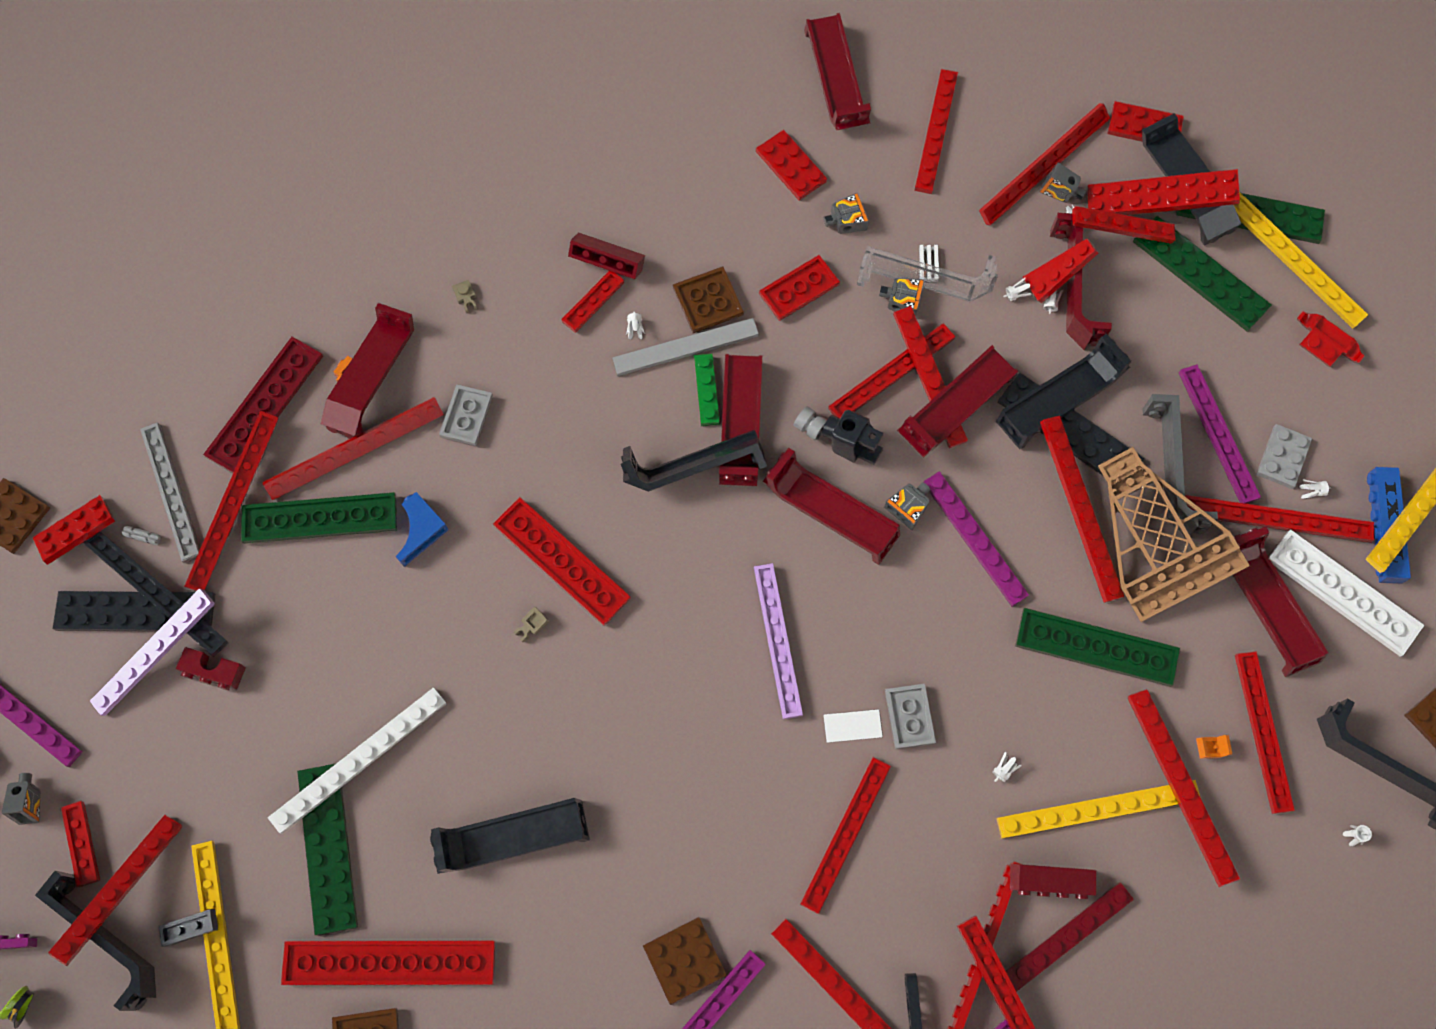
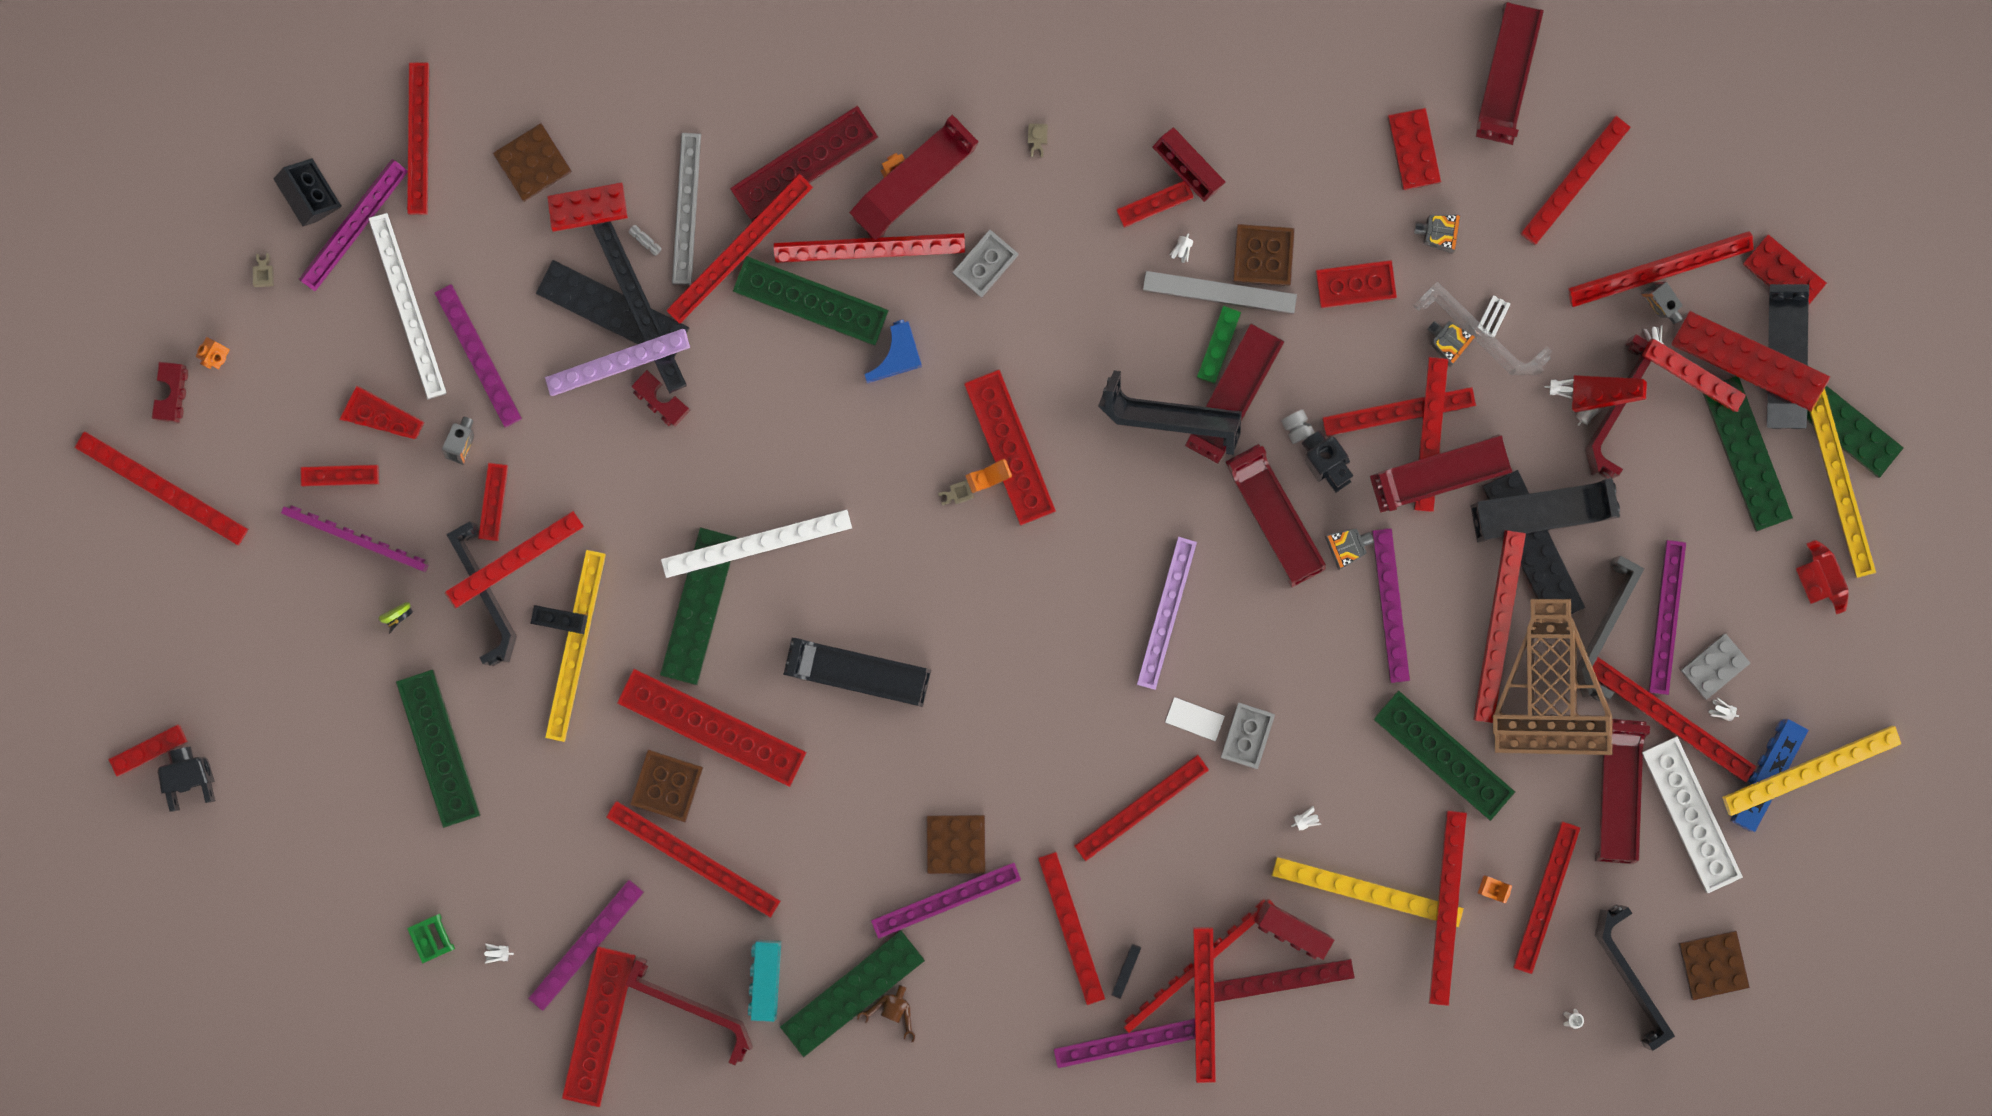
camera: 25 degrees right, 15 degrees up
(554, 594) = (988, 476): none -> orange bracket

